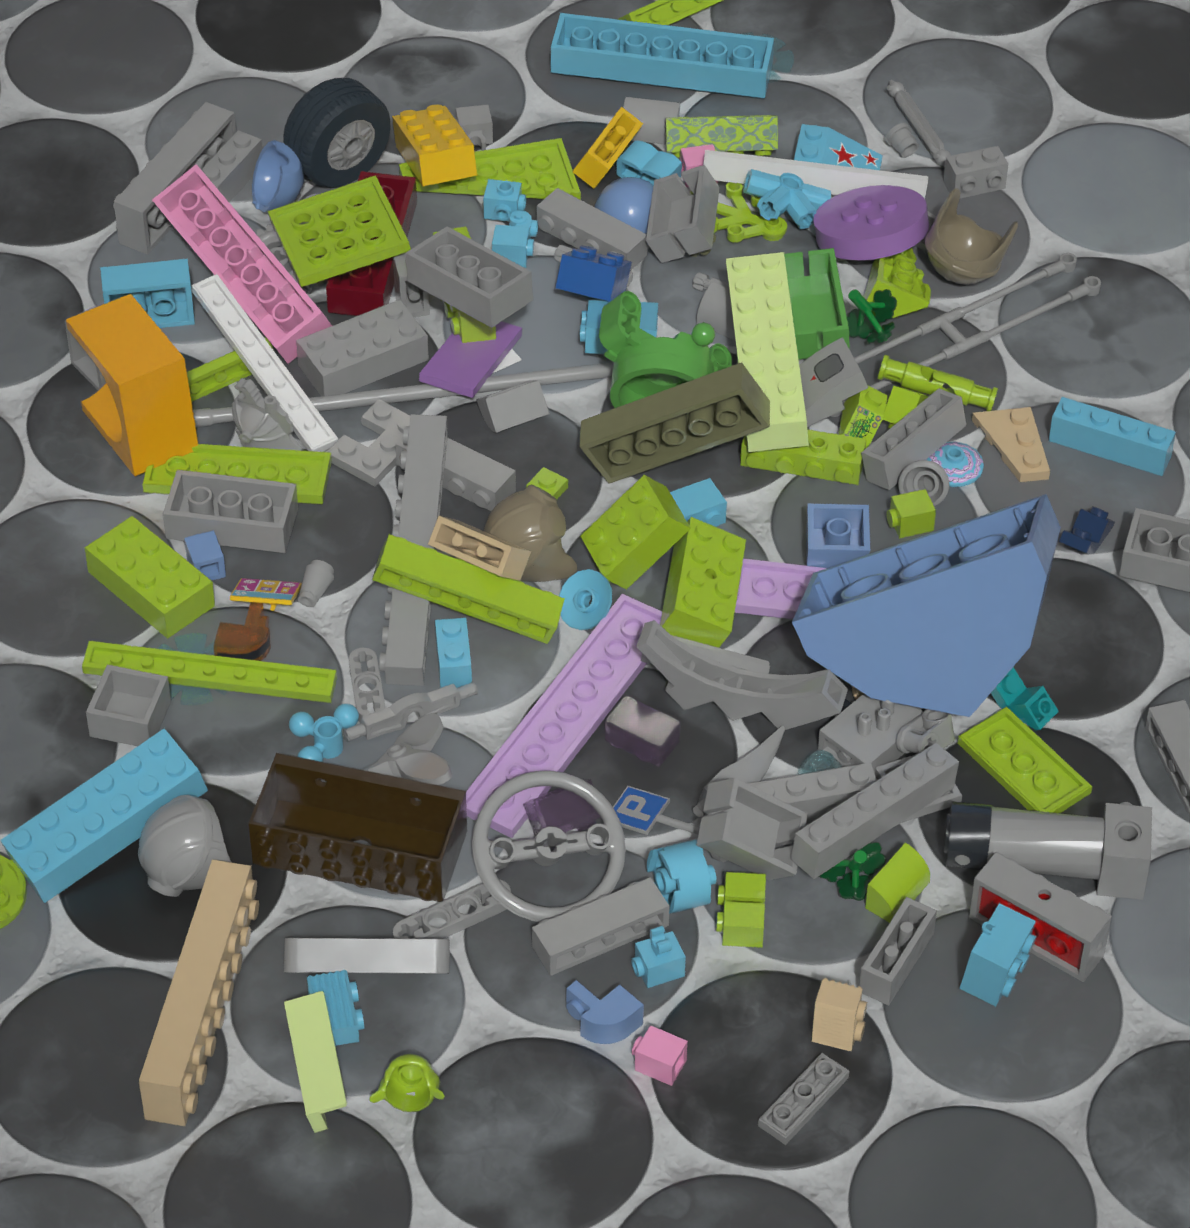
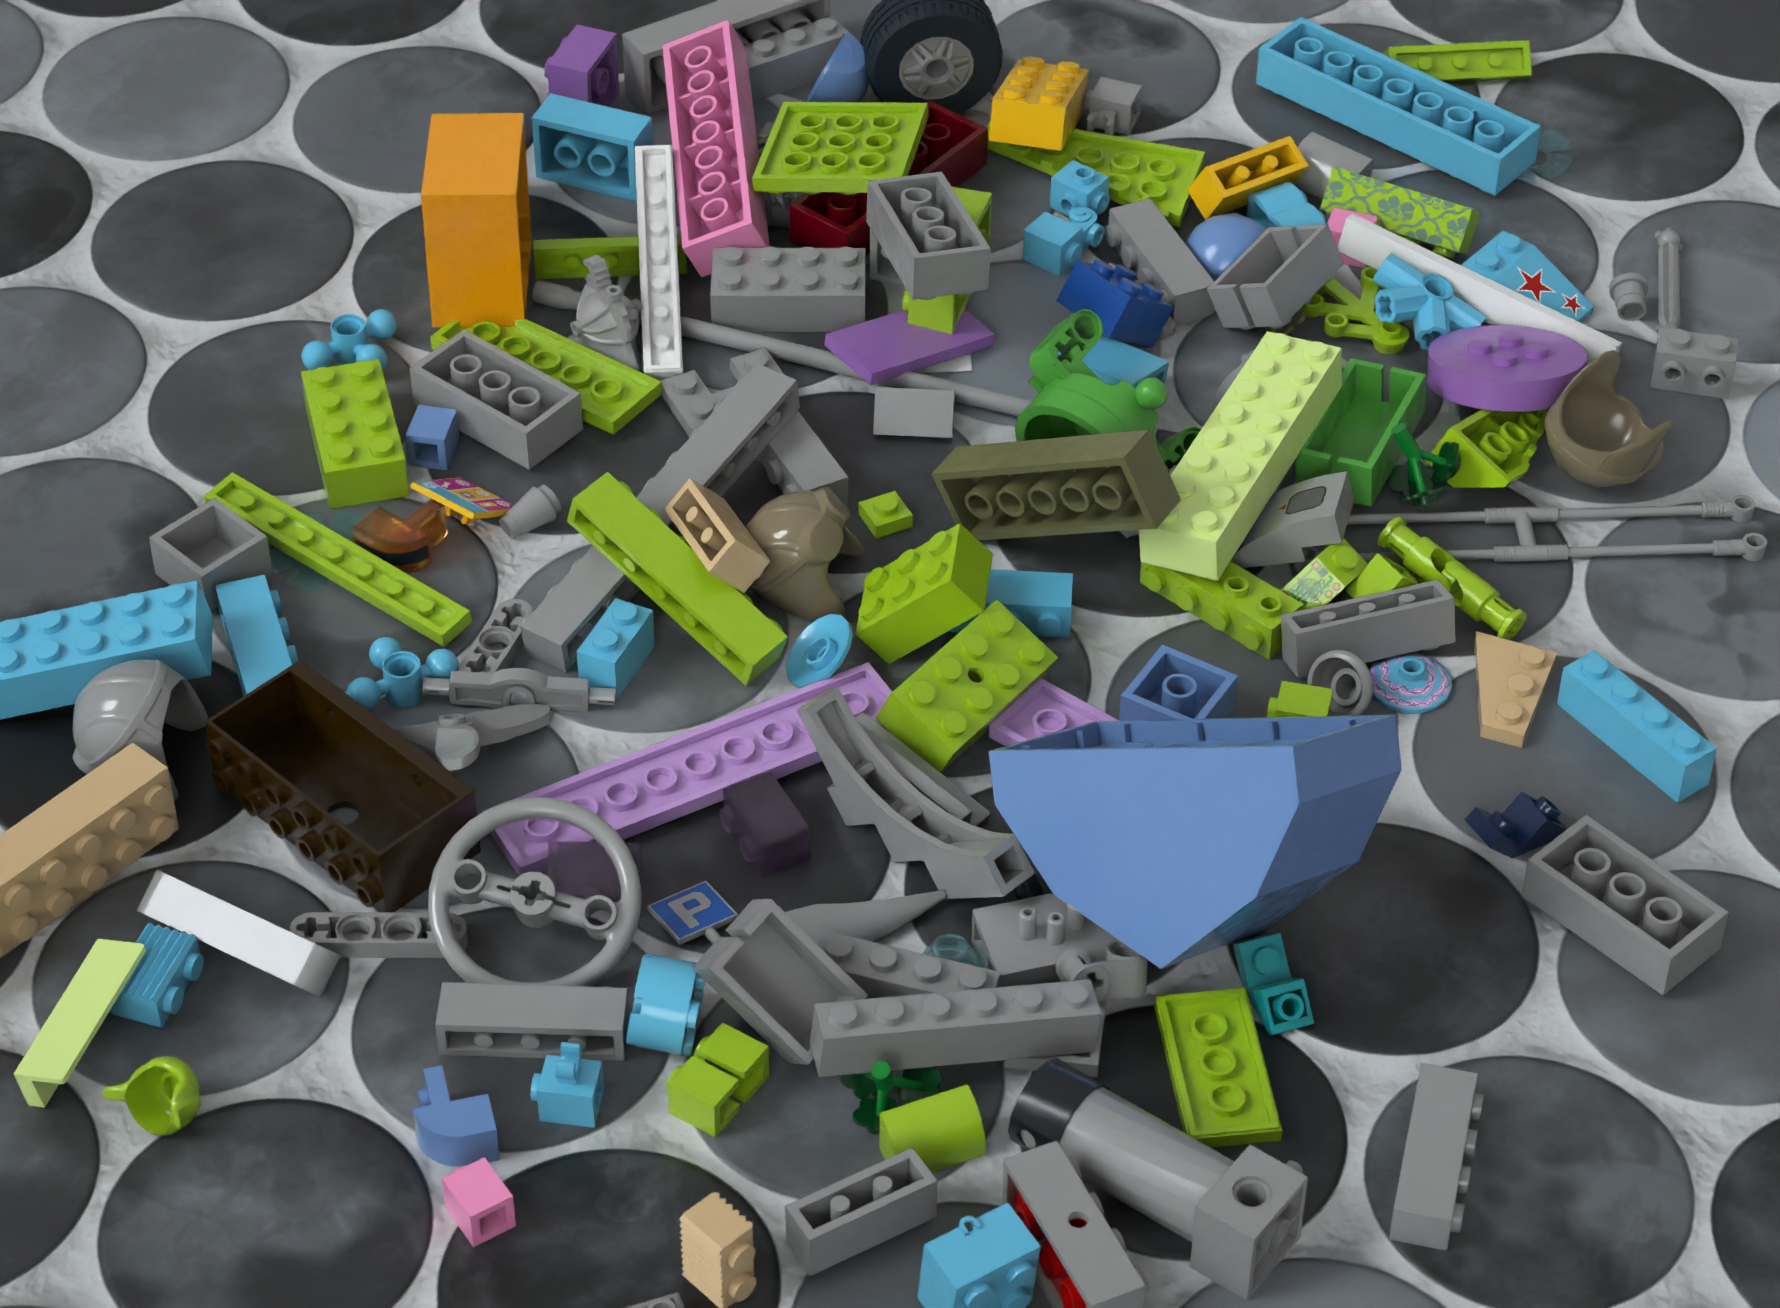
camera: 30 degrees right, 5 degrees down
(88, 513) = (350, 340): none -> medium azure piece
(94, 242) = (585, 66): none -> medium lavender brick
(221, 763) = (254, 630): none -> medium azure brick

